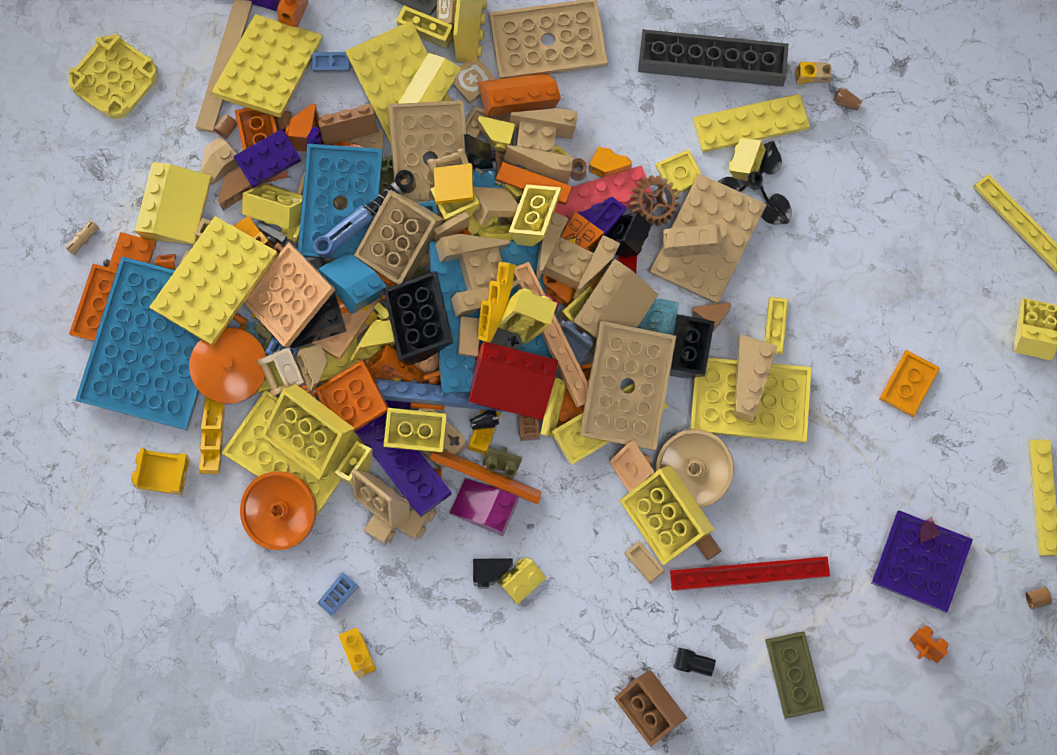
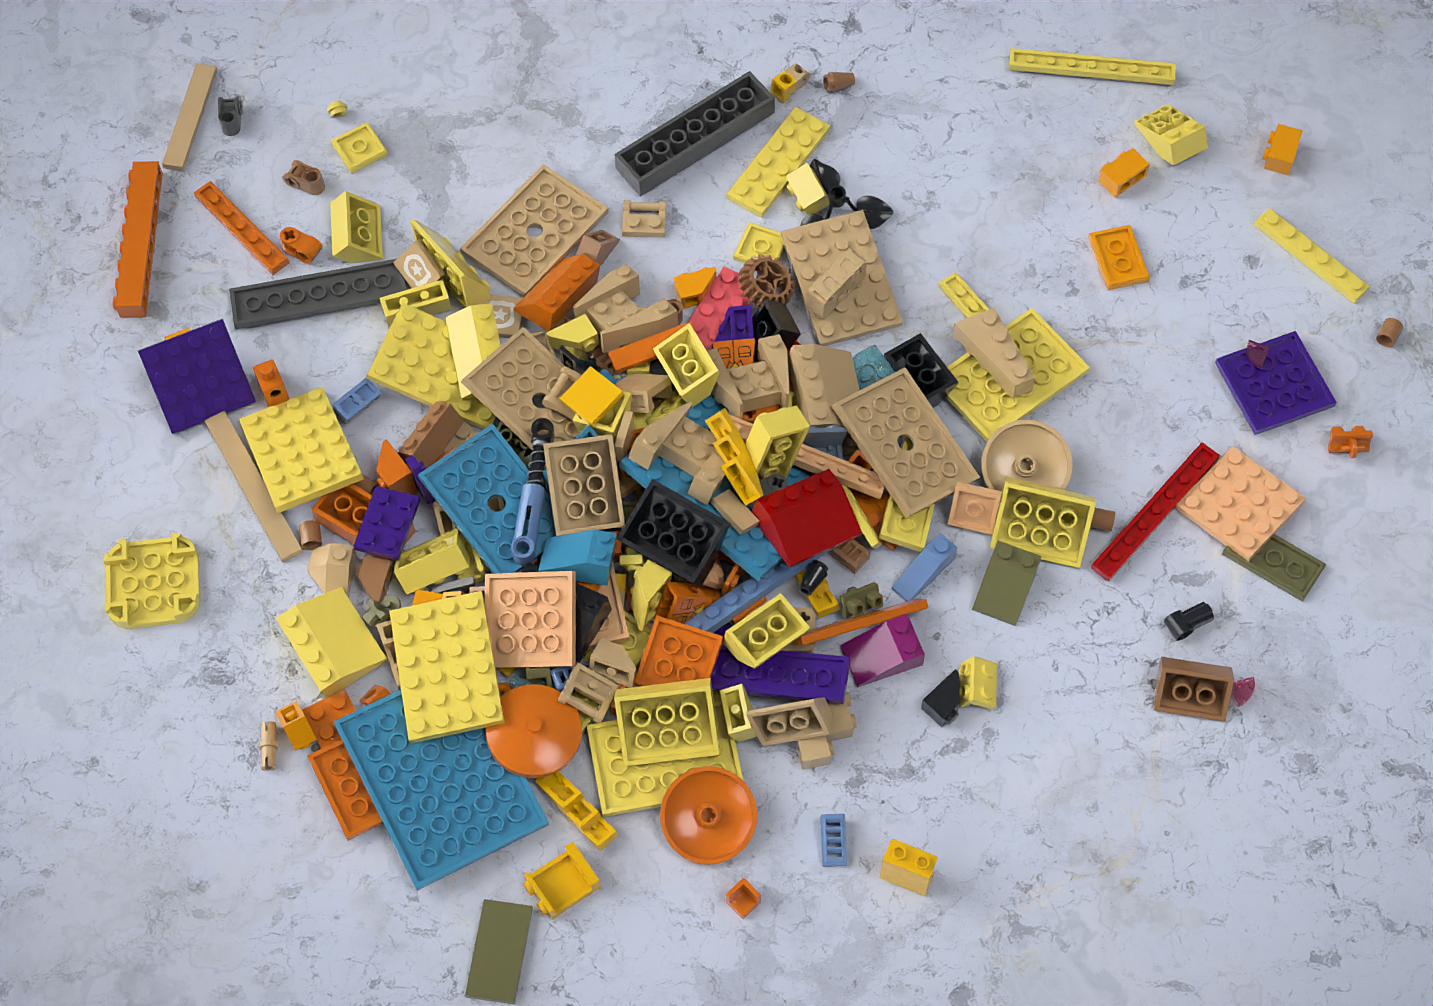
camera: 45 degrees left, 10 degrees down
(89, 480) = (499, 951): none -> olive tile
(105, 238) = (296, 726): none -> light orange slope
(213, 209) = (380, 612): none -> olive hips
(250, 579) = (743, 898): none -> orange panel
(564, 477) = (926, 567): none -> medium blue slope
(575, 83) = (597, 245): none -> medium nougat slope
(604, 533) = (1006, 583): none -> olive slope
(621, 93) = (643, 224): none -> tan plate
(644, 562) = (1062, 579): tan tile -> none
(682, 738) = (1243, 690): none -> clear pink tile
(712, 312) = (906, 331): medium nougat slope -> none
(810, 619) = (1240, 503): none -> light nougat plate
(974, 327) = (1123, 172): none -> light orange brick

